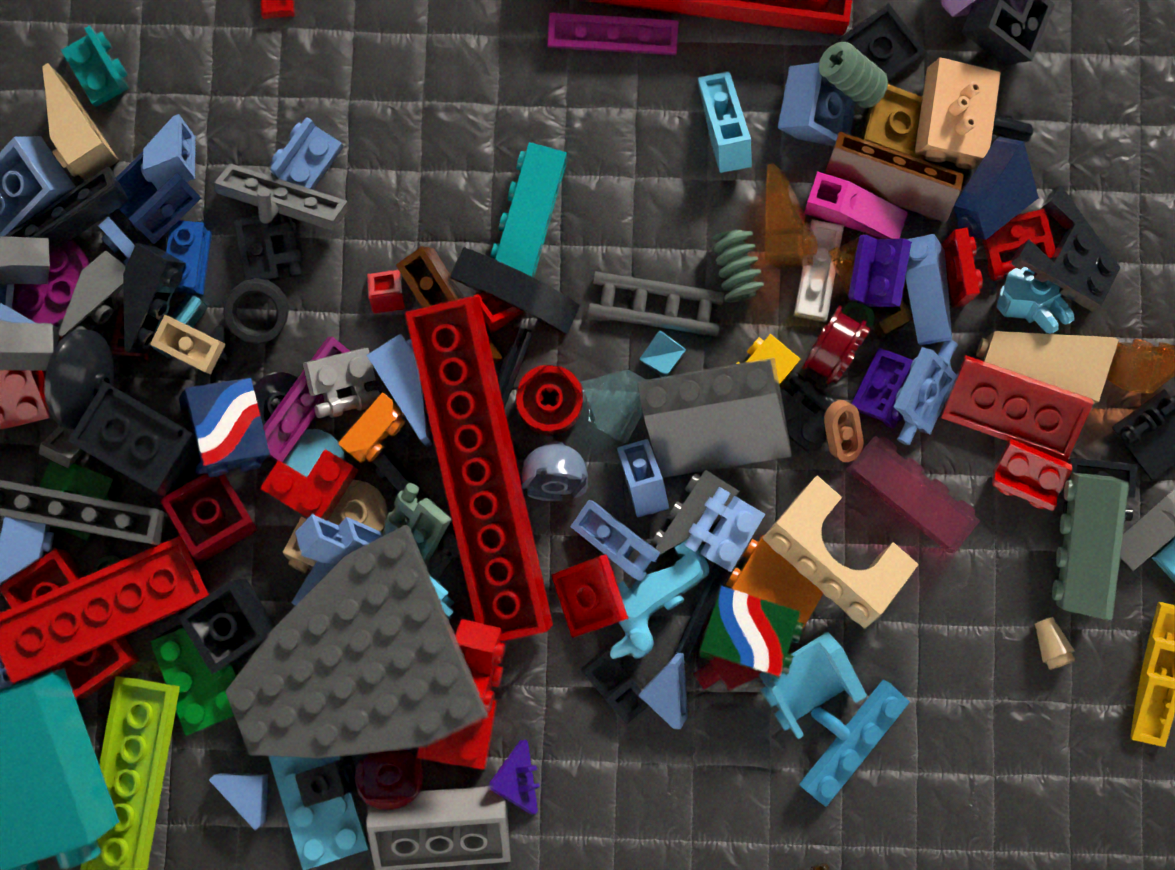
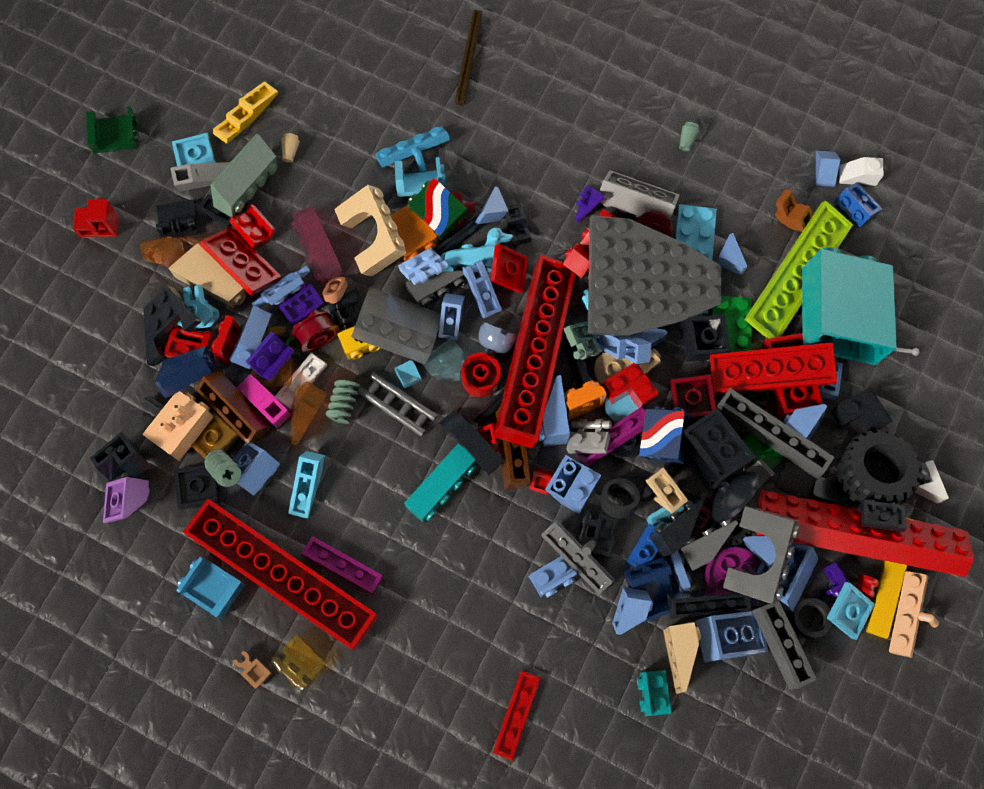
camera: 155 degrees left, 10 degrees down
(326, 782) = (690, 238): black bracket -> none
(333, 298) = (572, 484): none -> medium blue slope

